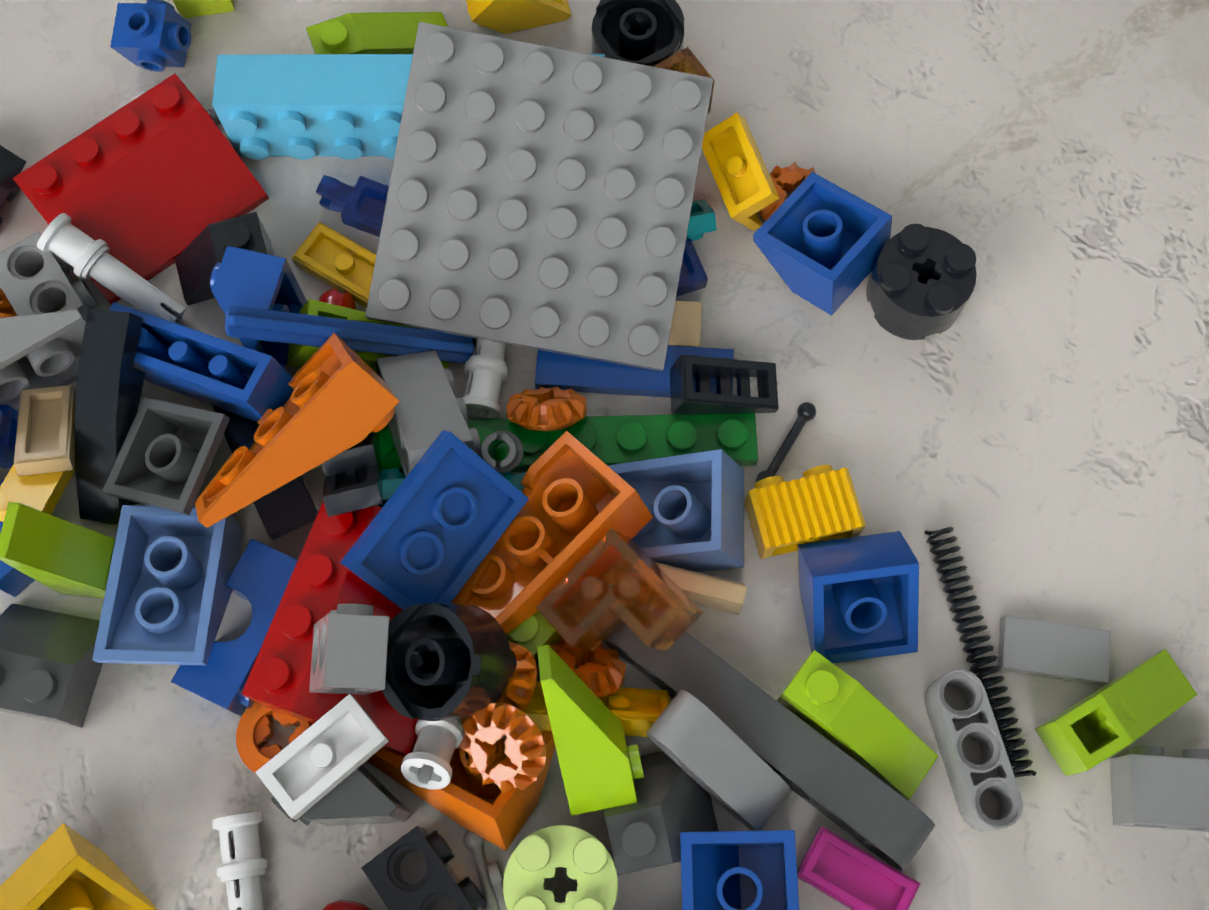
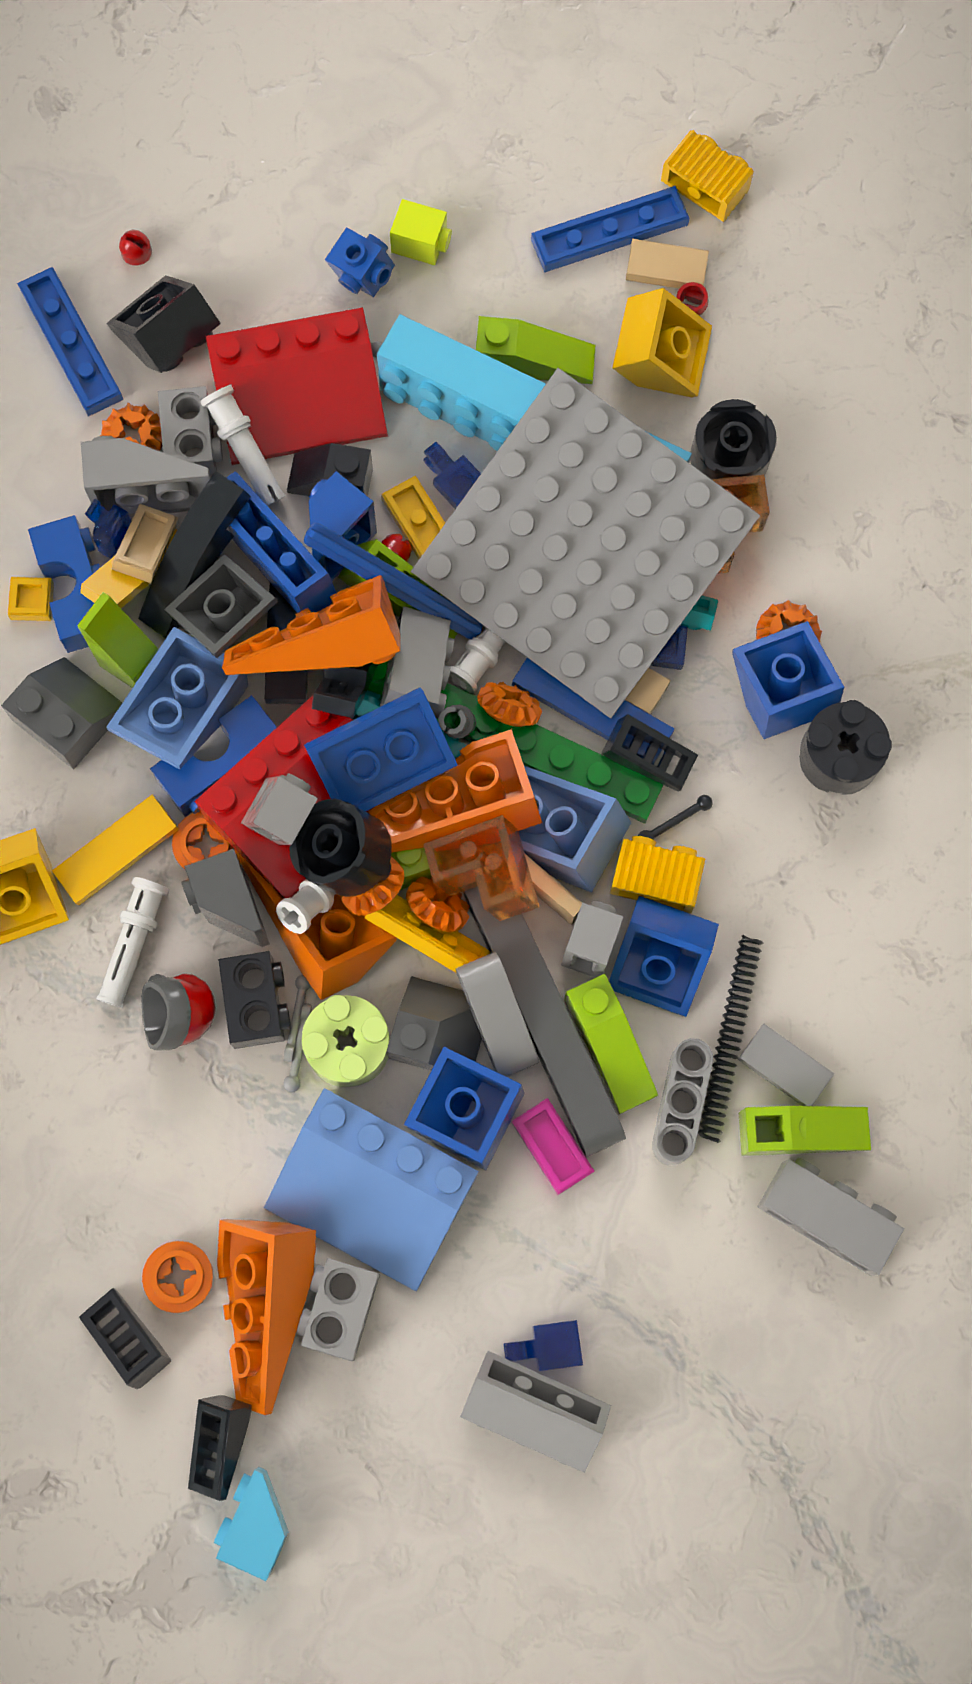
camera: 25 degrees right, 5 degrees up
(174, 799) = (115, 849): none -> yellow tile
(322, 757) = (229, 869): white plate -> none
(523, 748) = (365, 932): orange gear -> none
(588, 740) = (412, 951): lime slope -> none
(739, 170) = (751, 592): yellow panel -> none
(779, 618) = (592, 939): none -> light grey brick

